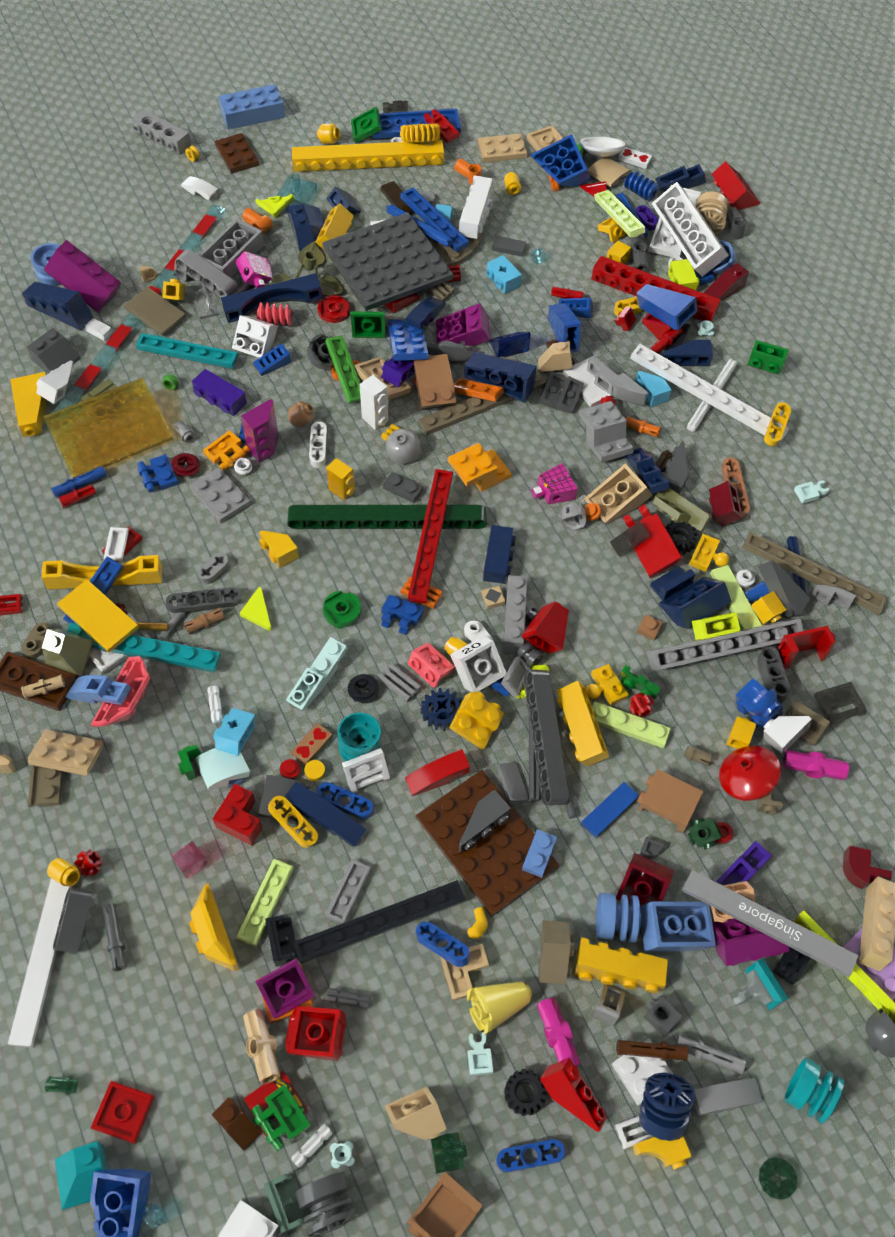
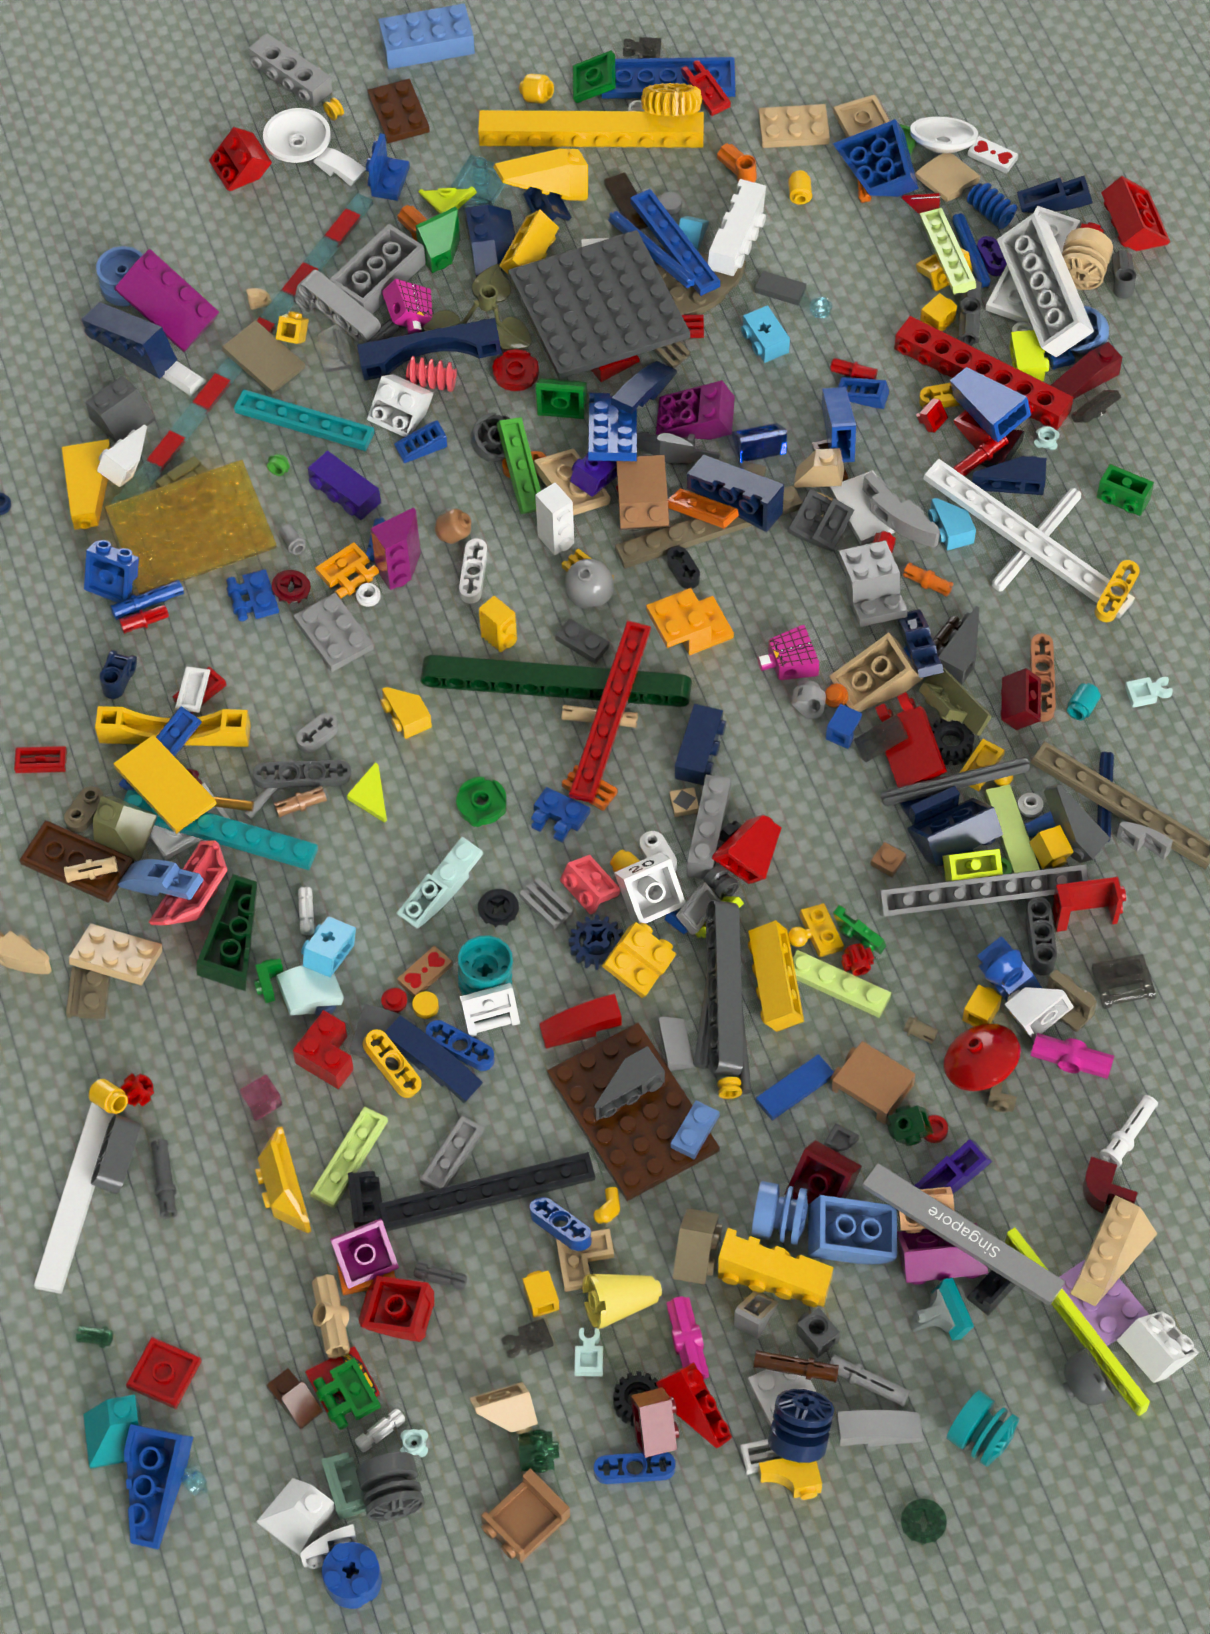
camera: 10 degrees right, 0 degrees up
(49, 462) = (110, 571): none -> blue plate
(58, 537) = (117, 674): none -> dark blue piece
(130, 187) = (239, 159): none -> red slope
(156, 731) = (229, 941): none -> dark green wedge
(168, 169) = (296, 135): none -> white dish
(231, 192) = (385, 173): none -> blue bracket
(273, 226) = (440, 239): none -> slope
(346, 179) = (551, 171): none -> yellow wedge
(414, 539) = (586, 714): none -> tan pin
(431, 1045) = (531, 1337): none -> clear smoke plate
(433, 1005) = (540, 1293): none -> yellow brick
(466, 433) = (679, 569): none -> black beam
(544, 1116) = (654, 1422): none -> brick
(560, 815) = (729, 1087): none -> yellow bush
(601, 532) = (842, 726): none -> blue panel
(693, 564) = (958, 780): none -> dark grey axle
(735, 305) = (1096, 406): none -> clear smoke plate
(768, 502) = (1083, 701): none -> teal brick
(868, 827) = (1124, 1139): none -> white pin

